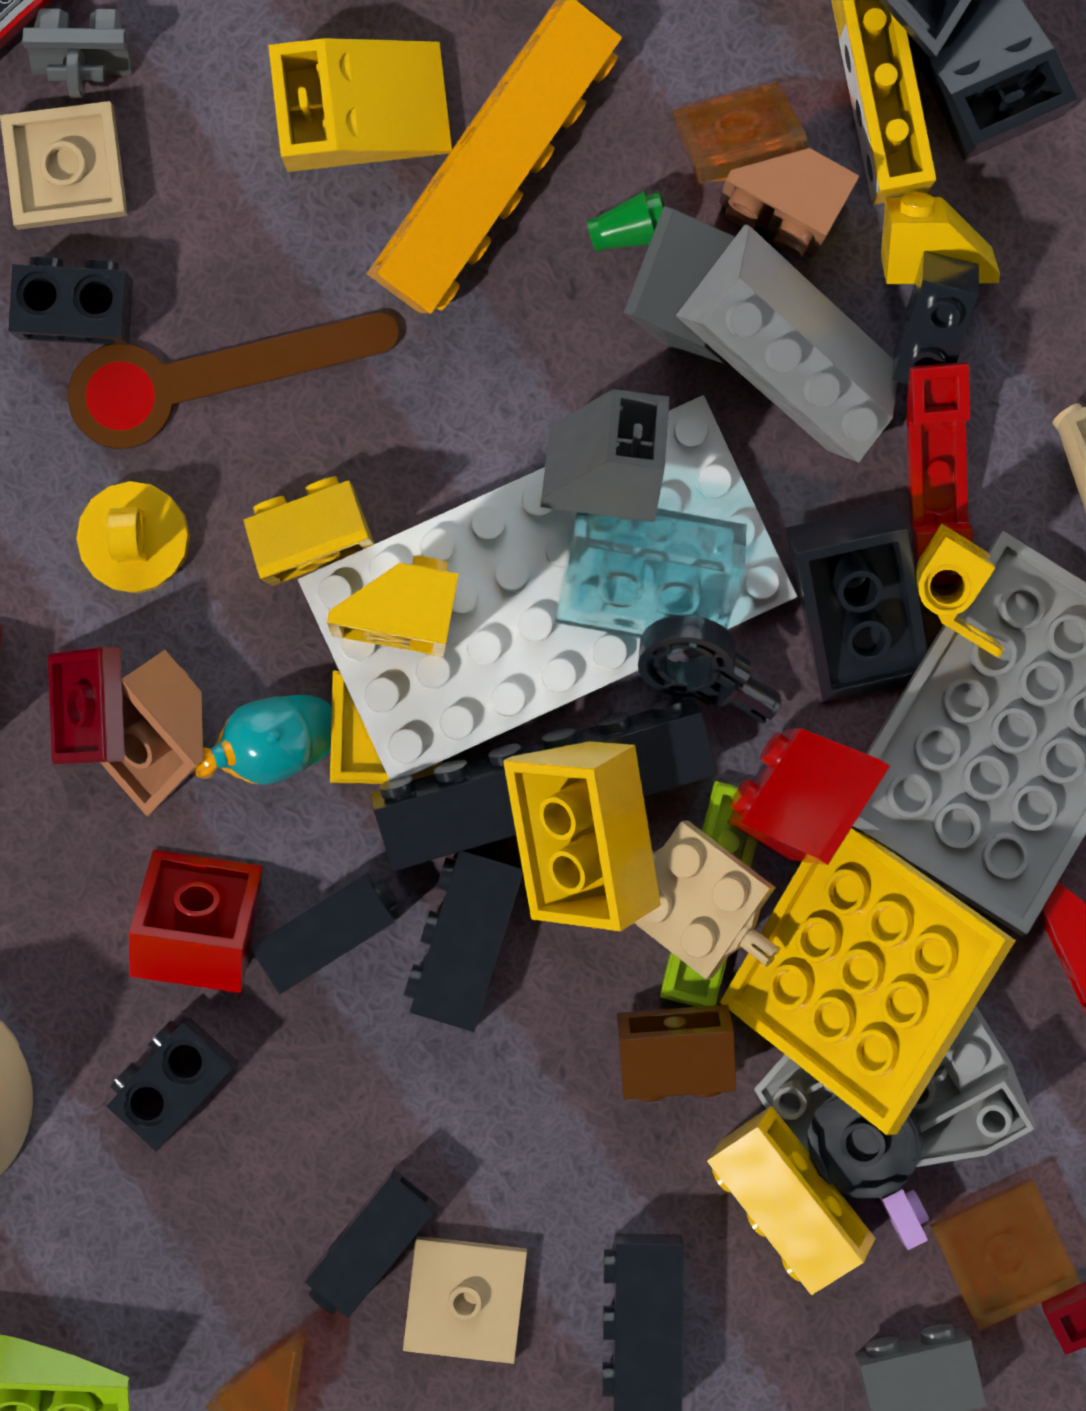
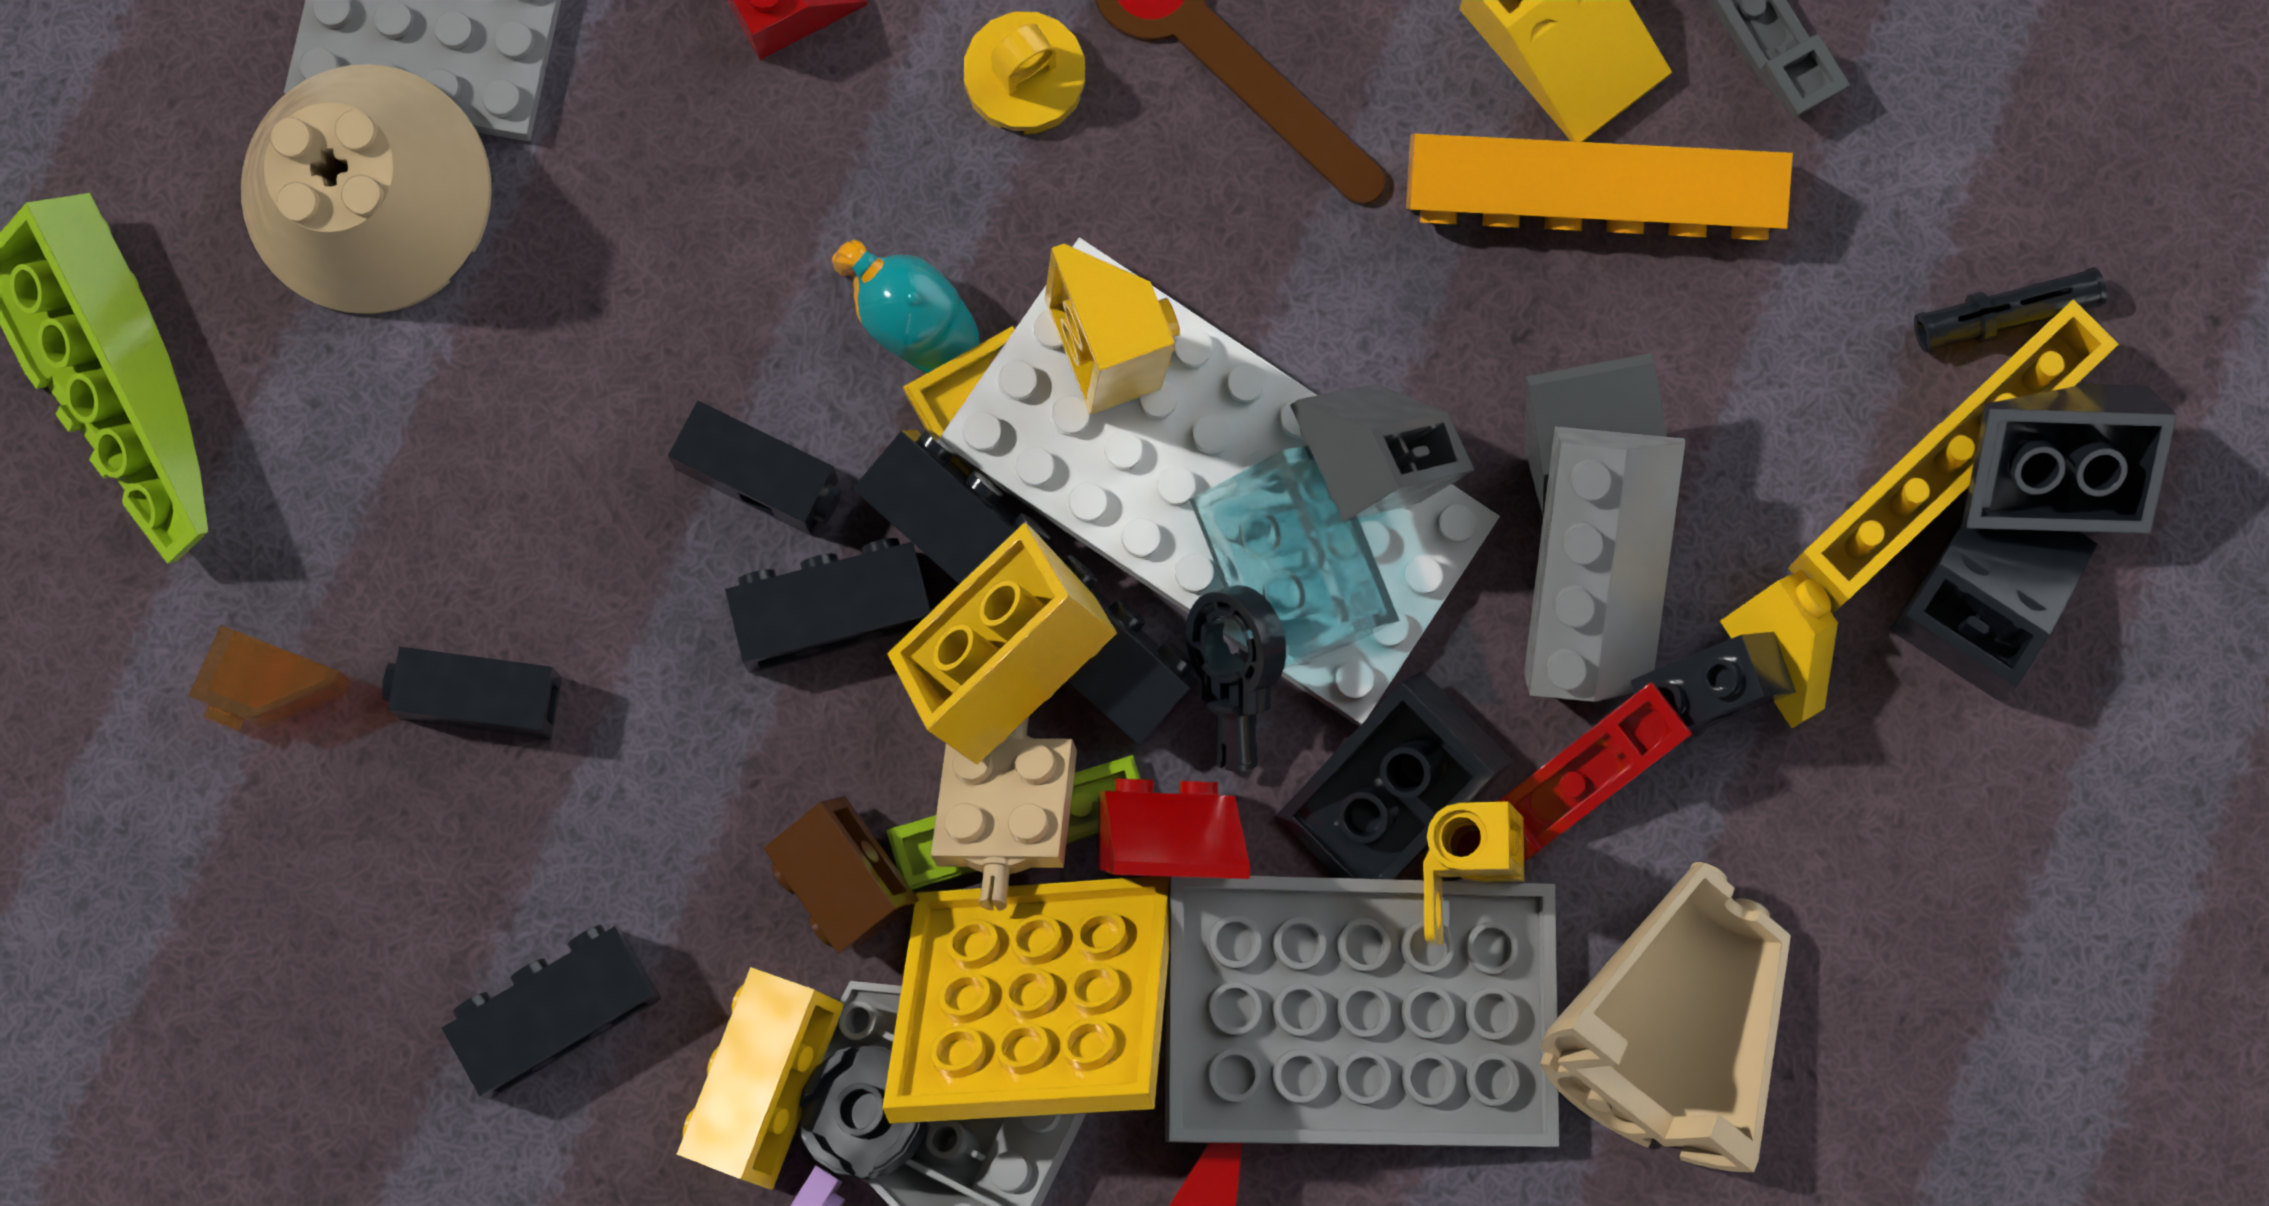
camera: 55 degrees right, 10 degrees down
(86, 706) = (836, 116): dark red tile -> none
(159, 732) = (849, 187): nougat slope -> none
(180, 1090) = (516, 426): black brick -> none
(194, 921) = (690, 340): red slope -> none
(307, 531) = (1129, 220): yellow slope -> none
(465, 1299) = (471, 822): tan plate -> none
(627, 223) = (1611, 340): green cone -> none
(738, 131) = (1769, 393): clear orange plate -> none
(790, 198) = (1743, 476): nougat slope -> none

